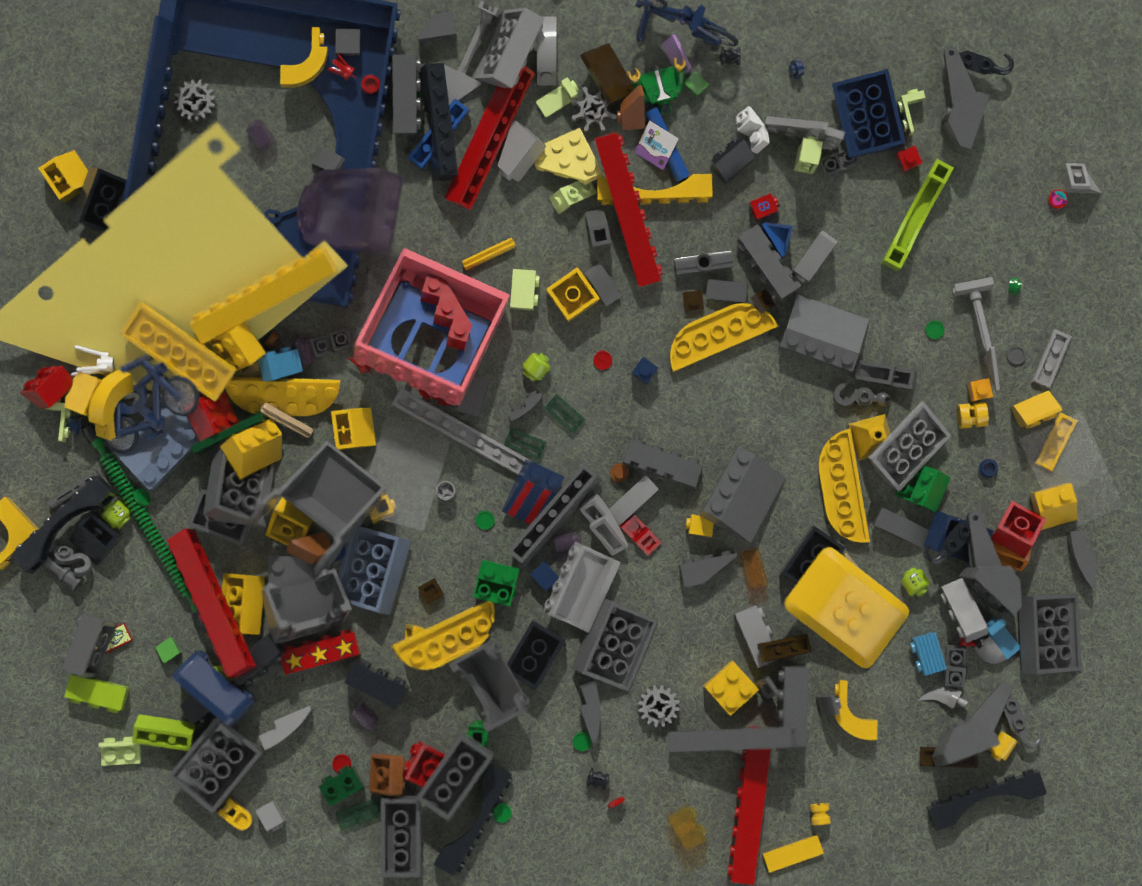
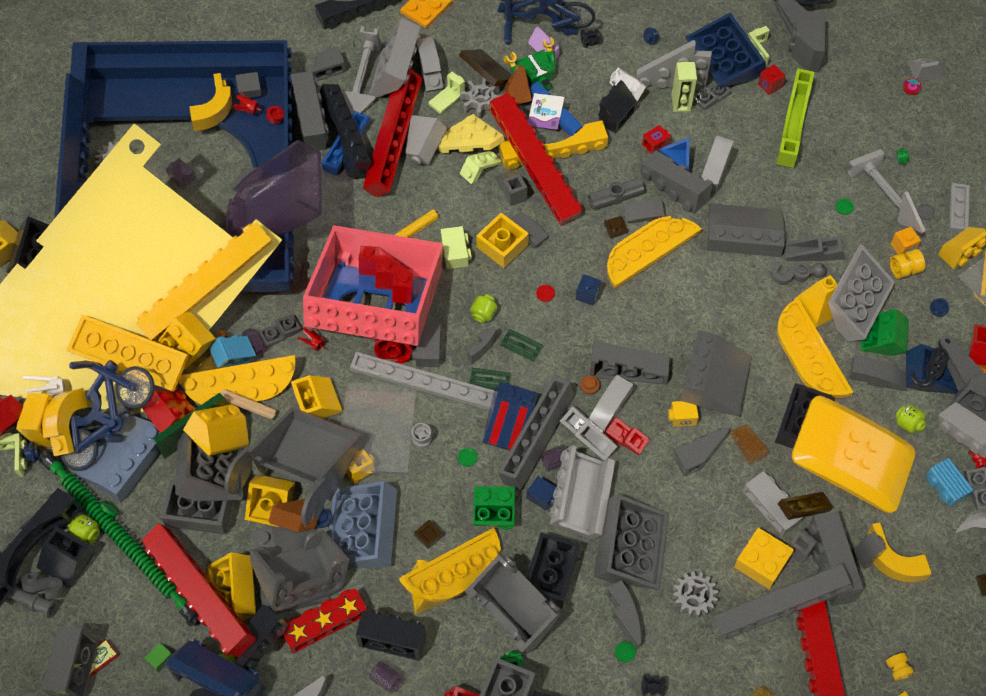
camera: 10 degrees left, 25 degrees down
(696, 84) = (566, 65): bright green slope -> none
(763, 301) = (679, 212): dark brown plate -> none

